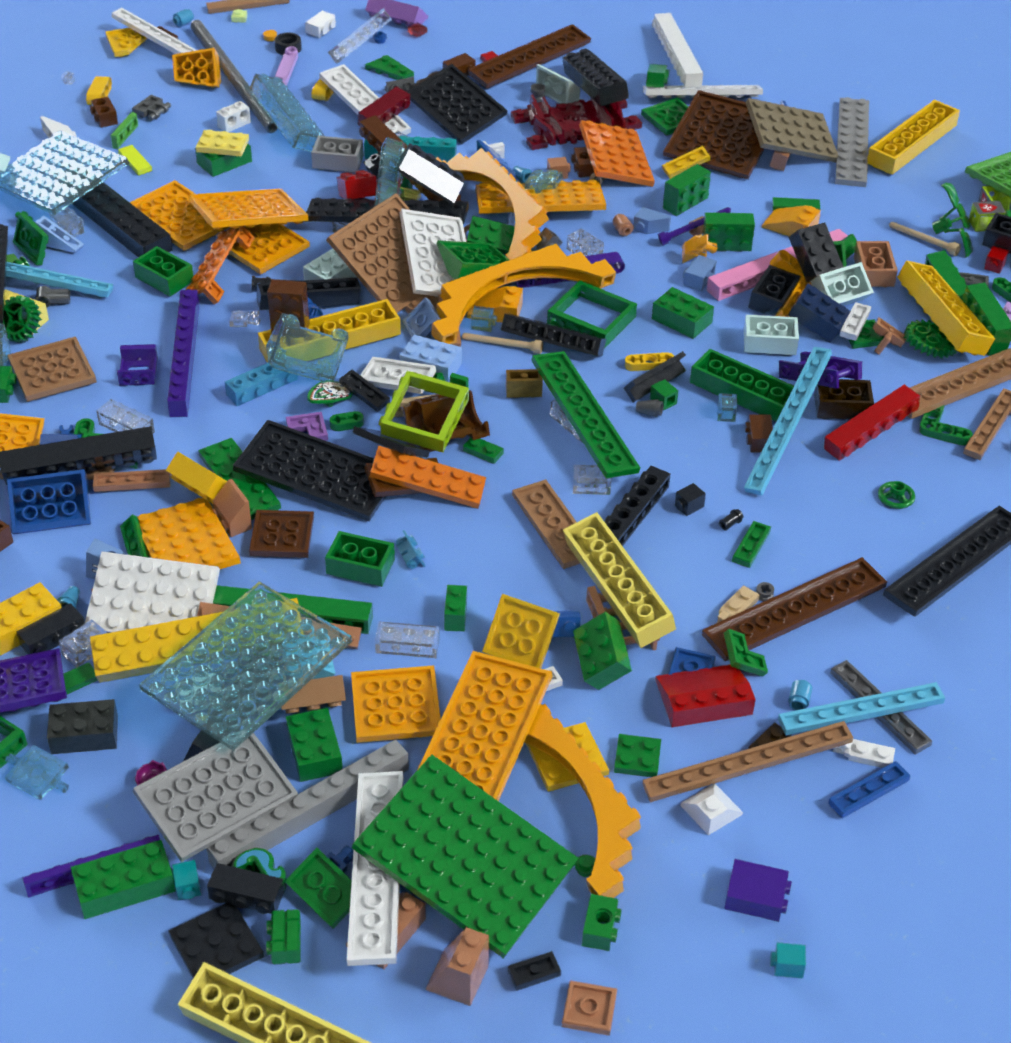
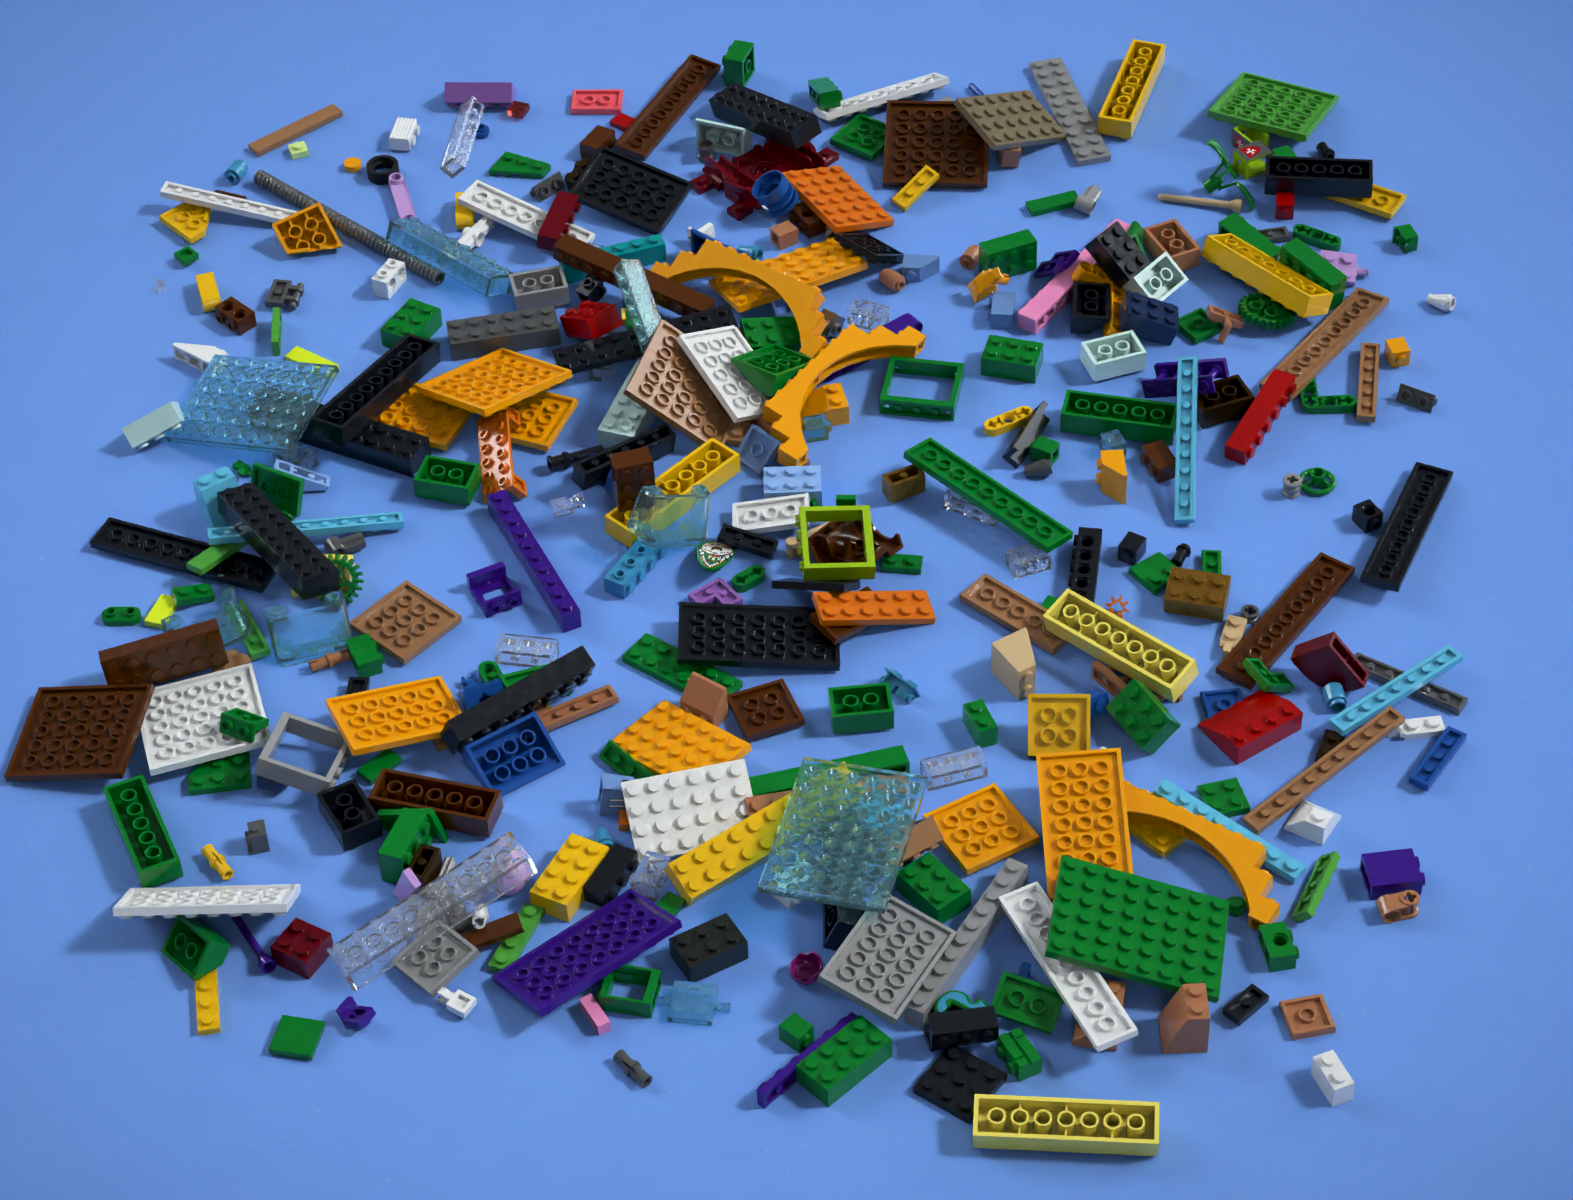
camera: 20 degrees left, 0 degrees up
(101, 834) = (796, 1032): none -> green brick
(103, 63) = (186, 255): none -> green plate
(150, 187) = (374, 390): none -> black brick
(186, 880) = (903, 1041): teal brick -> none
(195, 477) = (652, 682): yellow brick -> none
(222, 143) = (411, 315): light yellow plate -> none
(292, 177) = (507, 330): none -> dark grey brick
(322, 104) = (475, 235): none -> white piece
(430, 173) = (683, 285): slope -> none
(481, 40) = (597, 102): none -> coral tile
(520, 563) = (1014, 663): none -> tan slope
(535, 346) = (886, 441): tan piece -> none
(543, 180) = (783, 253): clear light blue plate -> none
(553, 334) = (899, 422): black brick -> none
(564, 133) = (775, 193): none -> blue wheel
(604, 38) = (739, 63): none -> green brick
(616, 194) = (869, 247): none -> black plate
(648, 543) = (1121, 604): none -> orange gear
(651, 831) = (1275, 858): none -> medium azure plate
(665, 237) = (944, 281): dark purple piece -> none
(672, 876) = (1316, 886): none -> bright green plate
(677, 50) = (827, 54): white brick -> none
(686, 189) = (938, 220): green brick -> none
(701, 528) = (1153, 572): none -> green plate
(708, 430) = (1112, 474): none -> light orange slope
(723, 557) = (1197, 593): none -> pearl gold brick
(743, 926) = (1396, 907): none -> nougat piece
(765, 250) = (1057, 264): none -> dark purple slope
(789, 960) = (1449, 920): teal brick -> none
(791, 219) = (1062, 223): light orange slope -> none
(808, 659) = (1329, 660): none -> dark red brick
(828, 209) = (1086, 202): none -> light grey piece
(855, 321) = (1187, 315): white plate -> none
(868, 491) = (1291, 486): none -> light grey bush
(925, 539) = (1367, 516): none -> black brick

